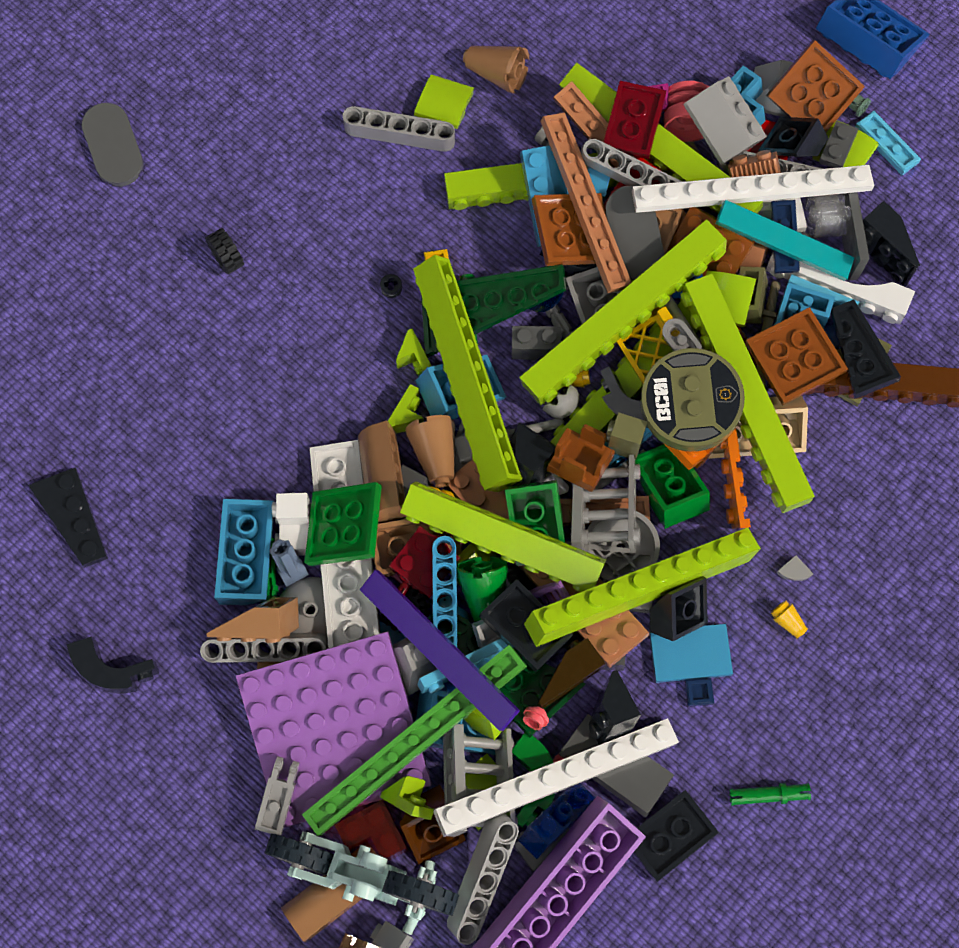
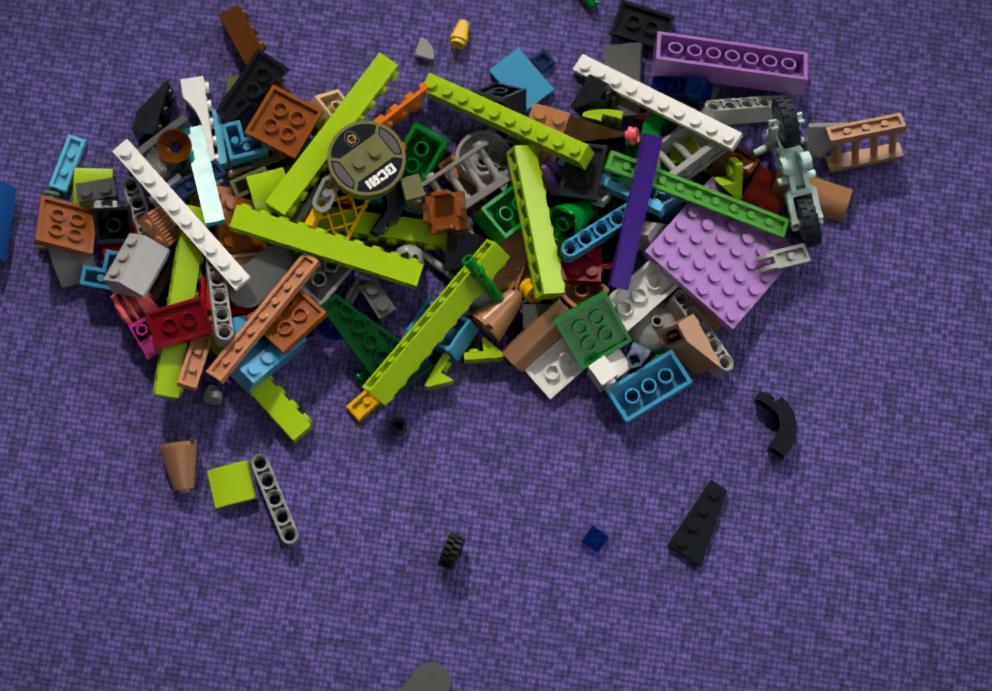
camera: 125 degrees left, 5 degrees up
(136, 401) = (595, 539): none -> clear blue tile
(484, 435) = (471, 265): none -> green pin
(583, 699) = (604, 117): none -> lime slope
(836, 220) = (164, 144): none -> reddish brown piece

